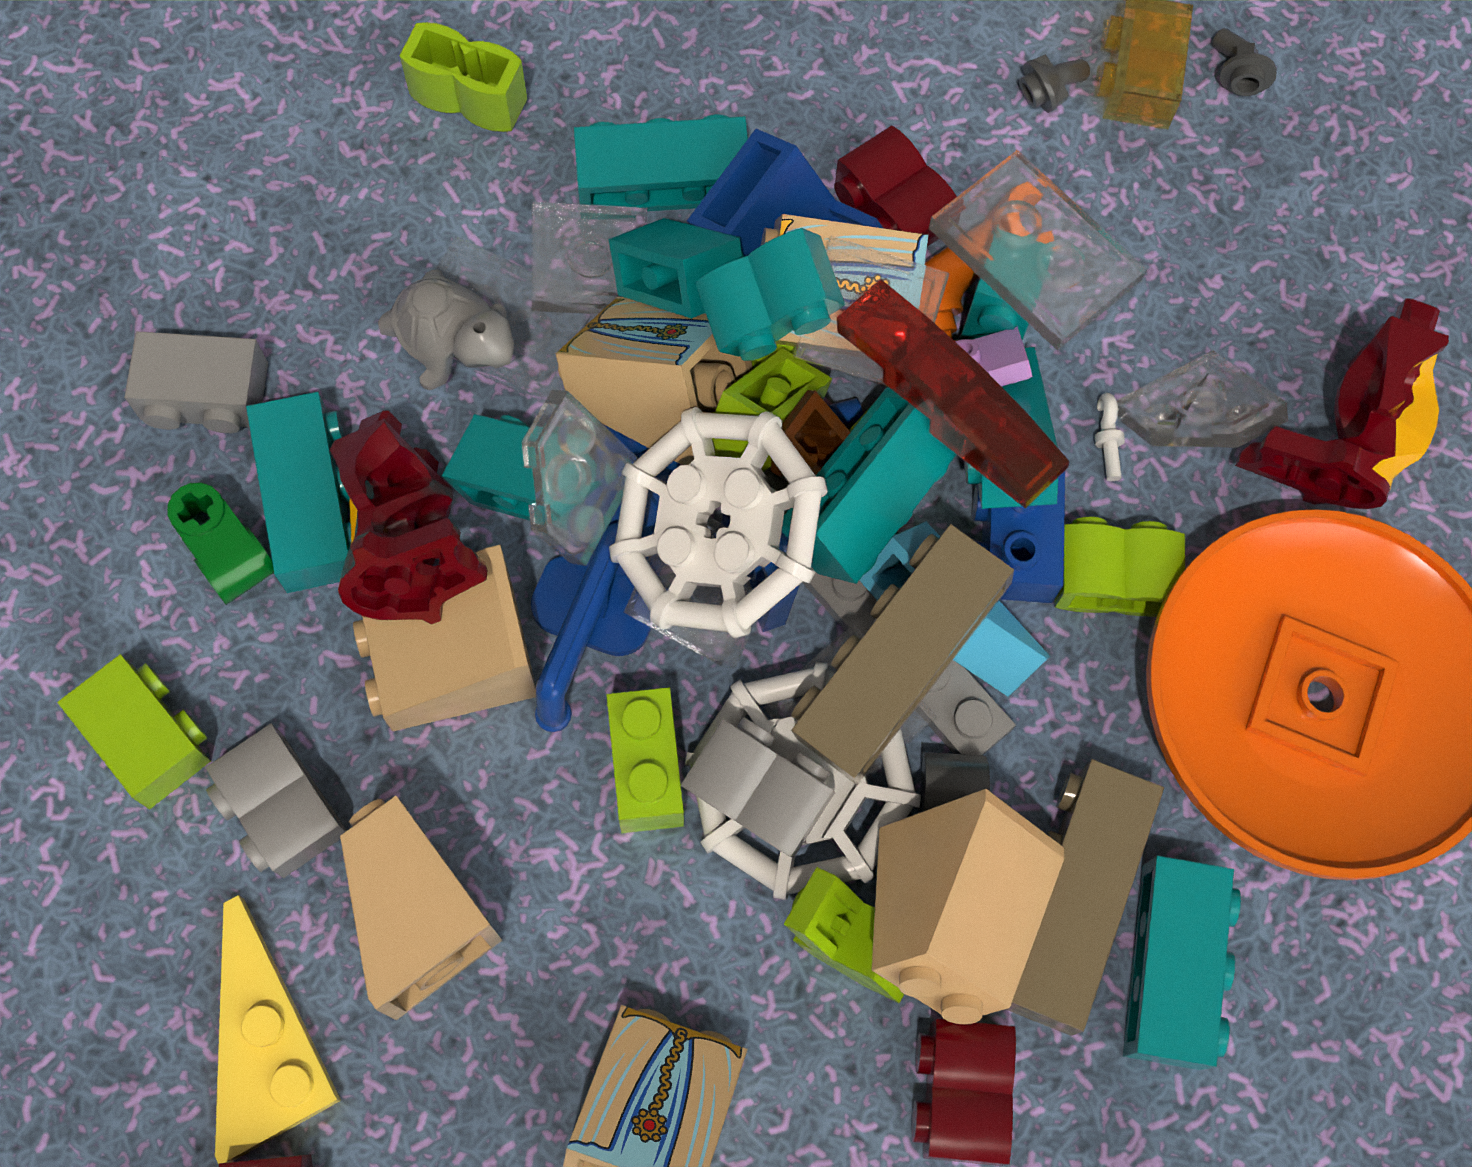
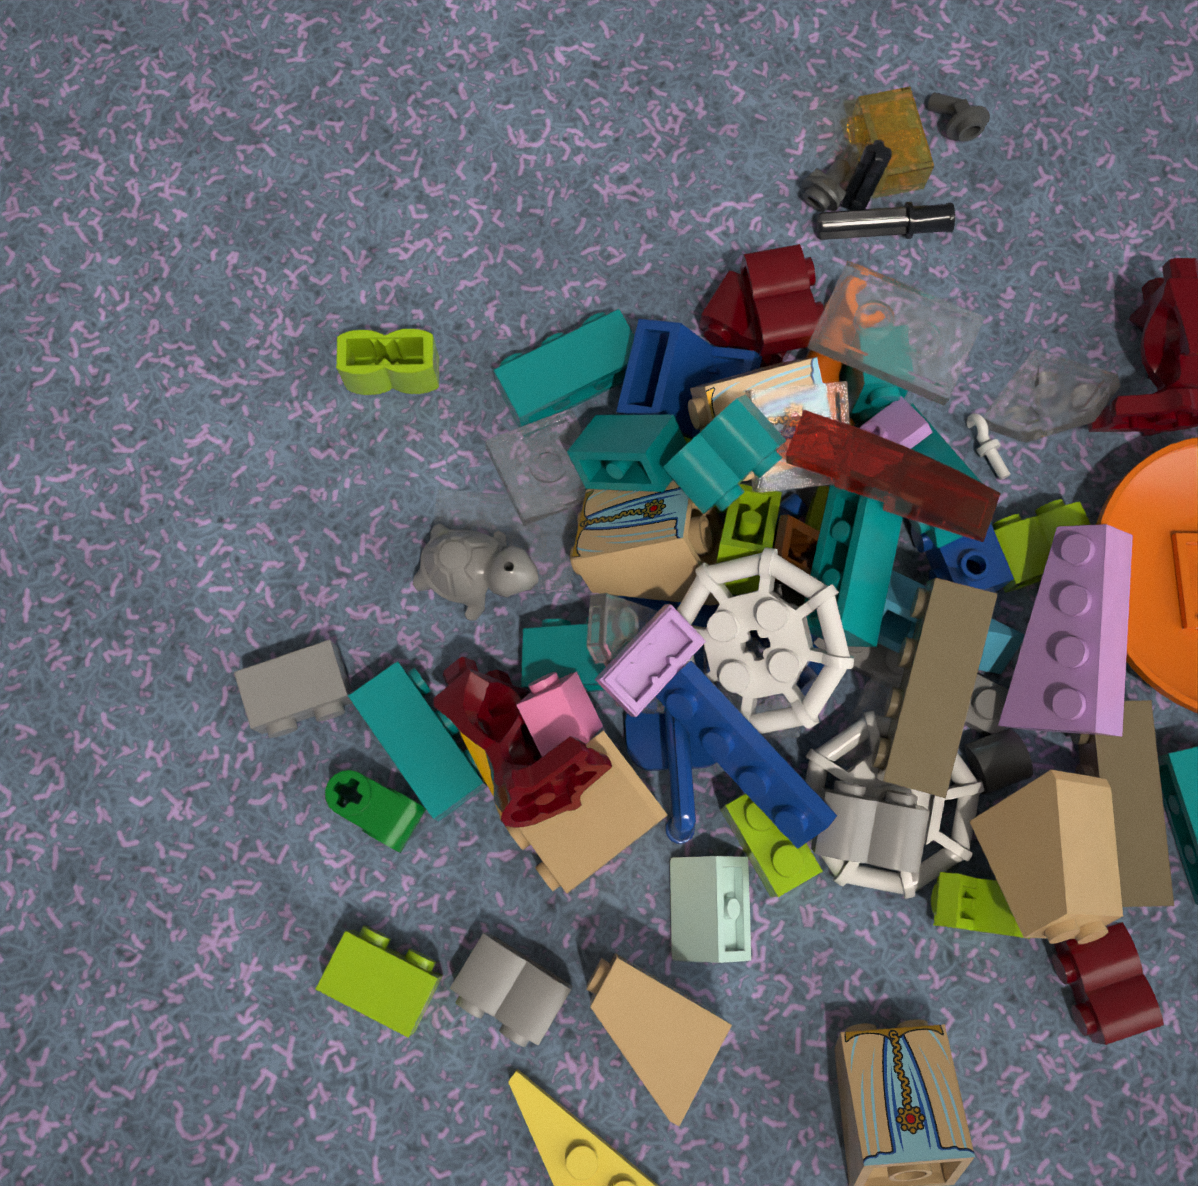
camera: 20 degrees left, 5 degrees up
(470, 500) = (558, 710): none -> bright pink brick
(545, 812) = (710, 909): none -> light aqua panel
(584, 485) = (650, 660): none -> lavender plate
(648, 639) = (746, 755): none -> blue plate
(928, 166) = (780, 298): none -> dark red brick
(1095, 83) = (866, 176): none -> black axle
(1100, 673) = (1076, 637): none -> lavender wedge
(1102, 145) = (886, 221): none -> black axle

